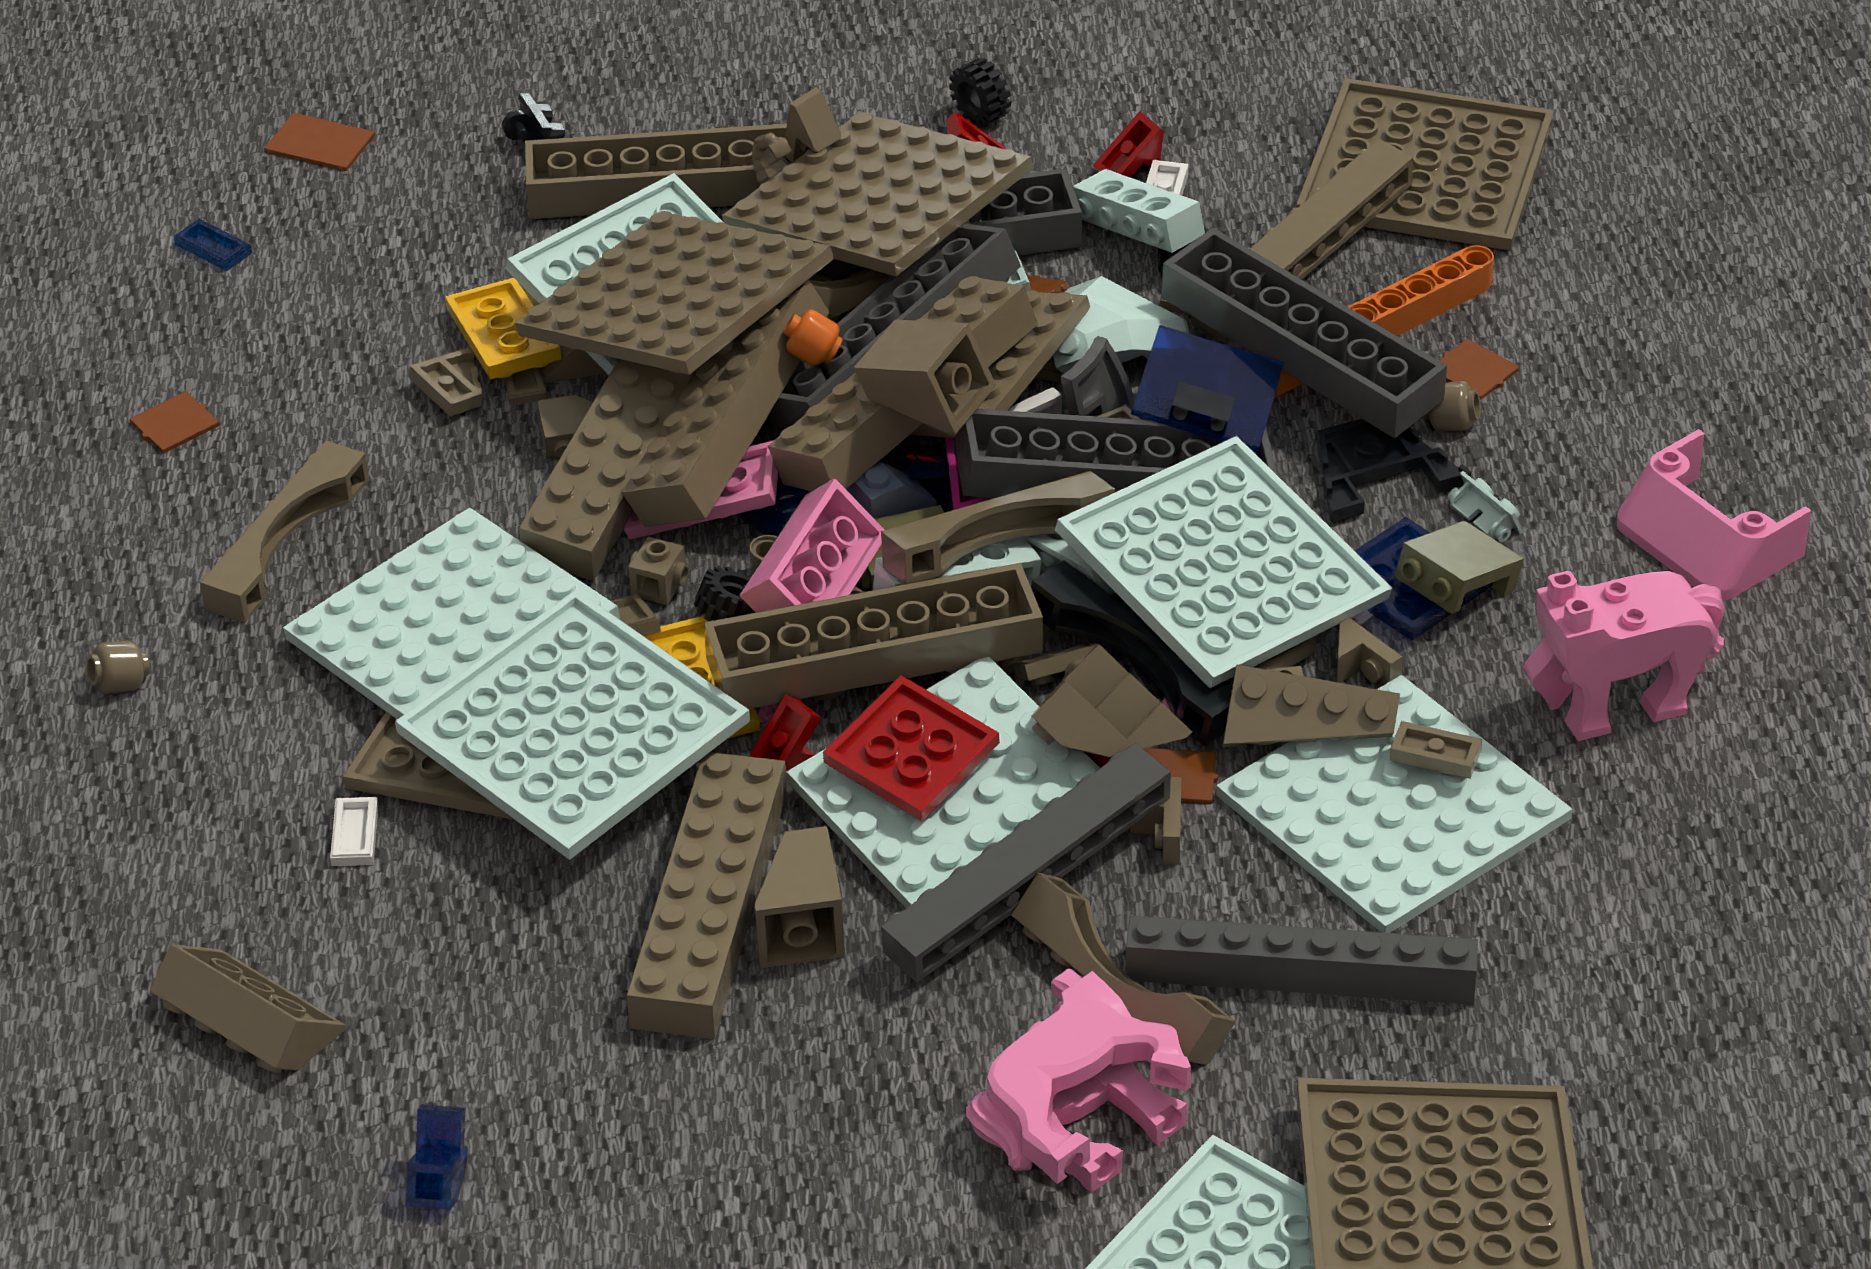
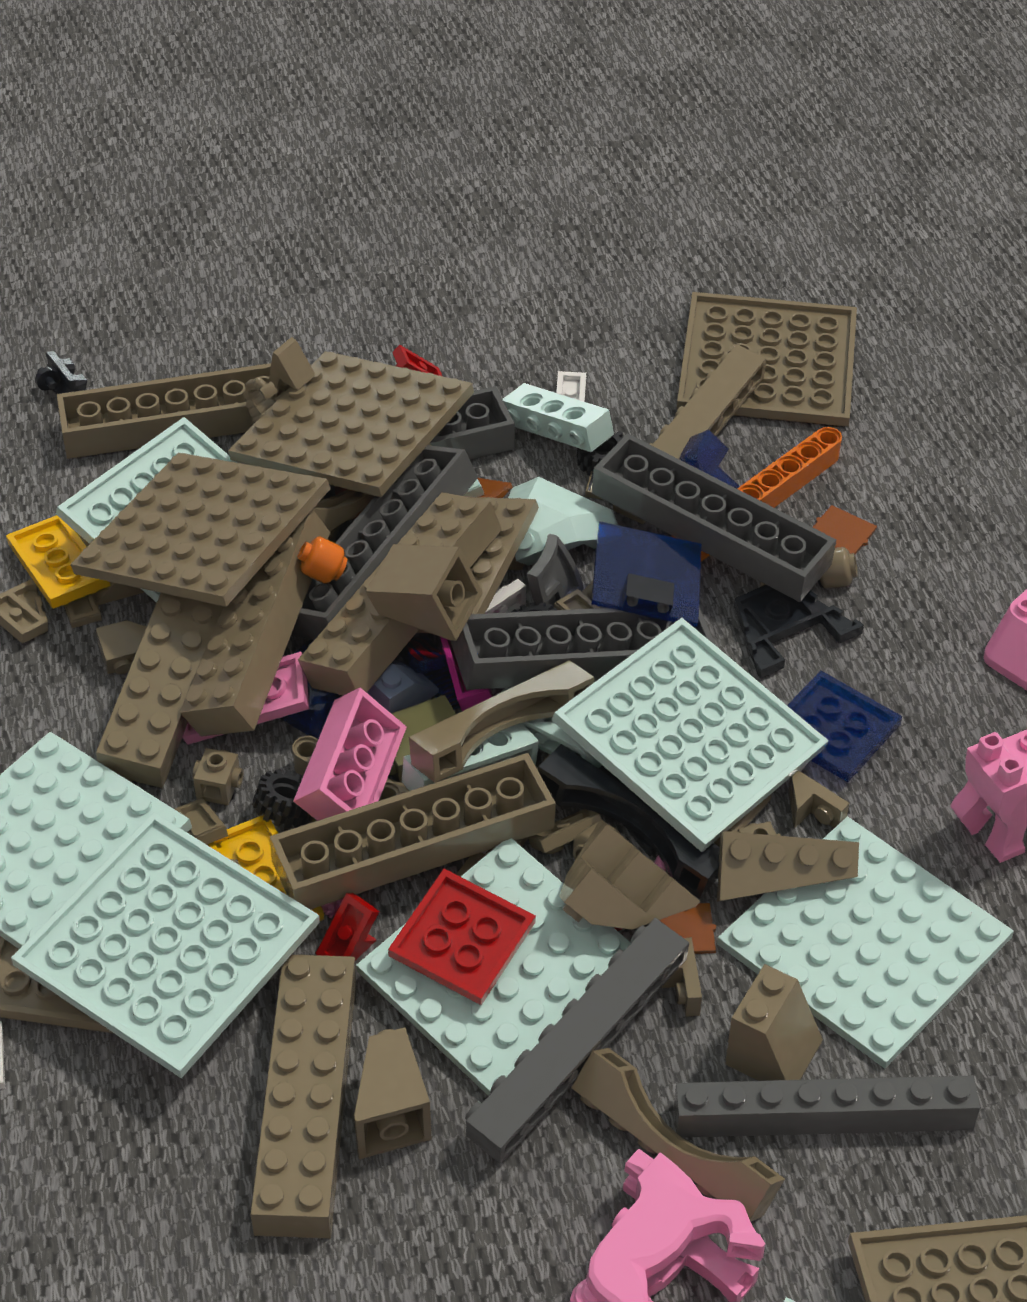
camera: 10 degrees left, 5 degrees up
(980, 92) = (413, 324): black tyre -> none
(1135, 145) = (542, 361): red slope -> none
(1254, 870) = (773, 1029): none -> dark tan slope
(1312, 262) = (706, 453): none -> clear blue brick
(1435, 749) = (896, 889): dark tan plate -> none
(1455, 562) = (874, 713): olive panel -> none
(1477, 497) = (872, 647): light aqua hinge -> none

